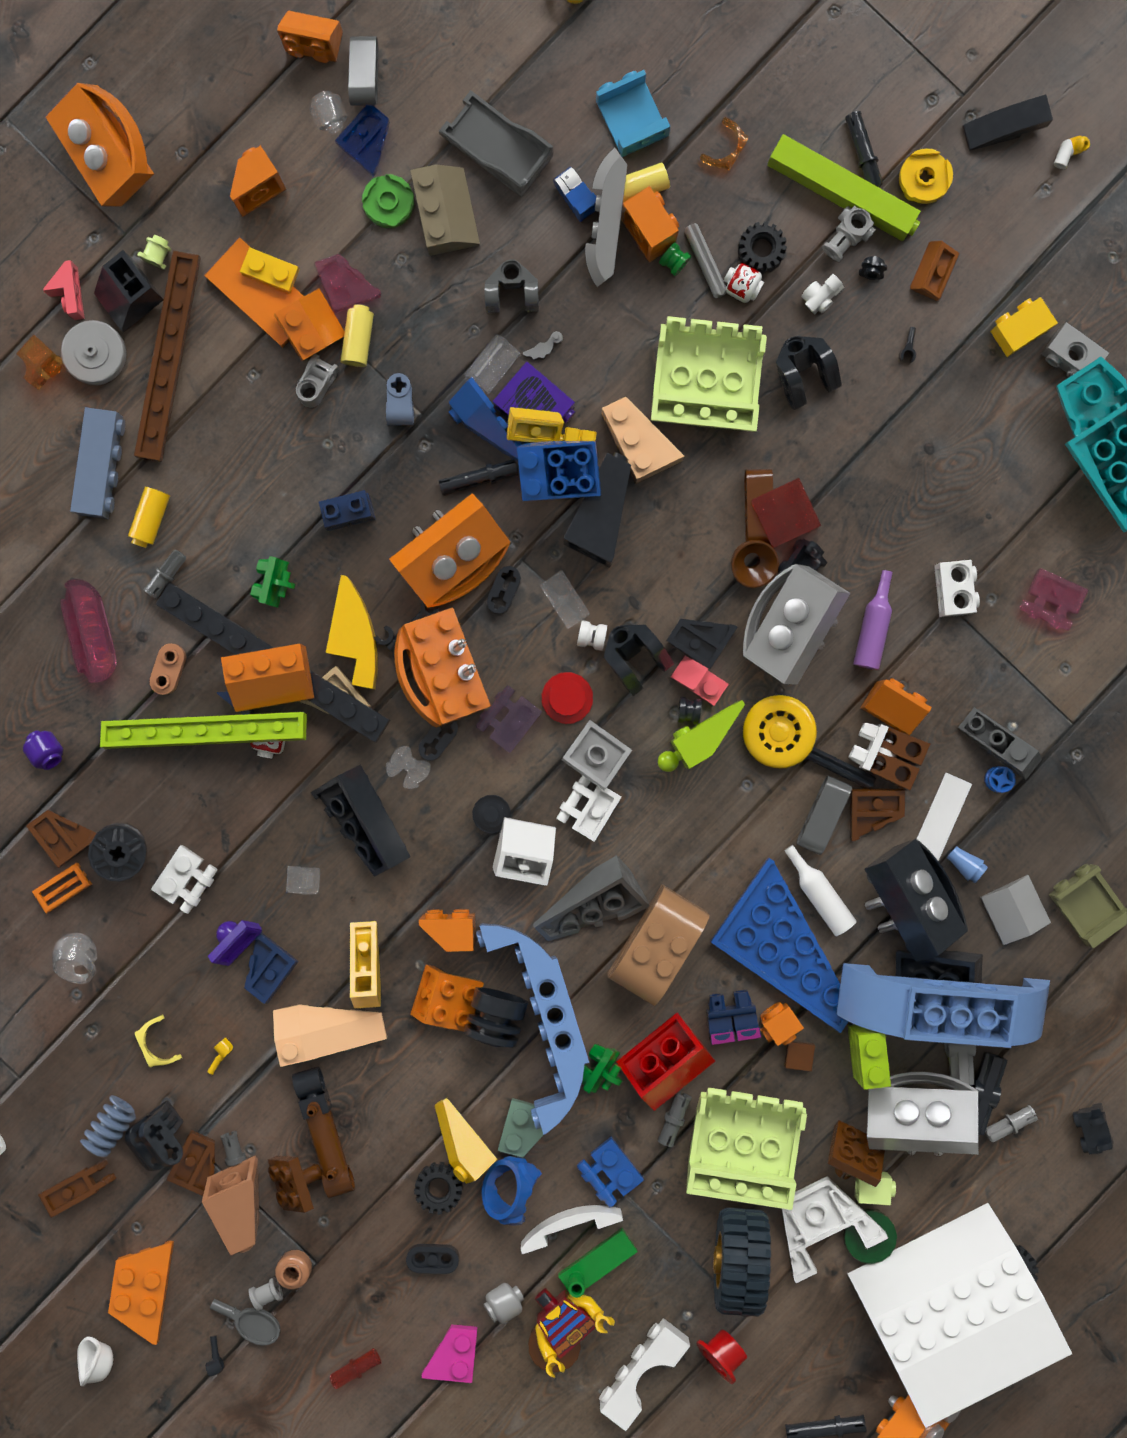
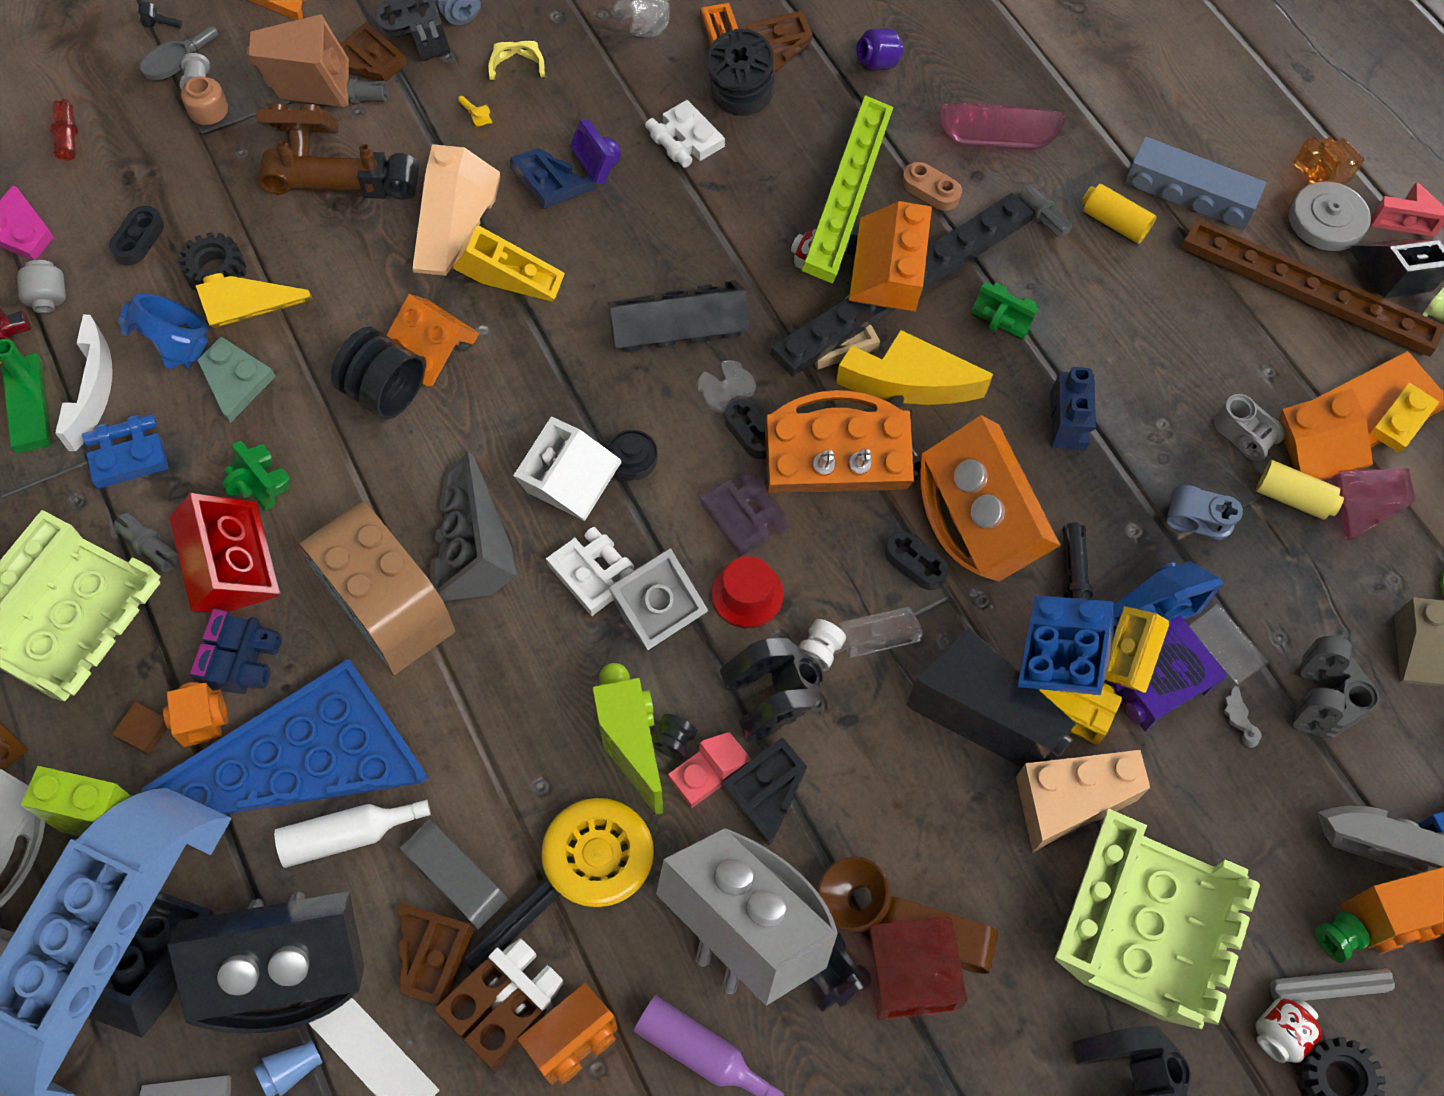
camera: 105 degrees right, 25 degrees down
(303, 880) = (635, 243): clear slope -> none
(452, 930) = (506, 358): orange slope -> none
(568, 1057) = (356, 435): medium blue slope -> none

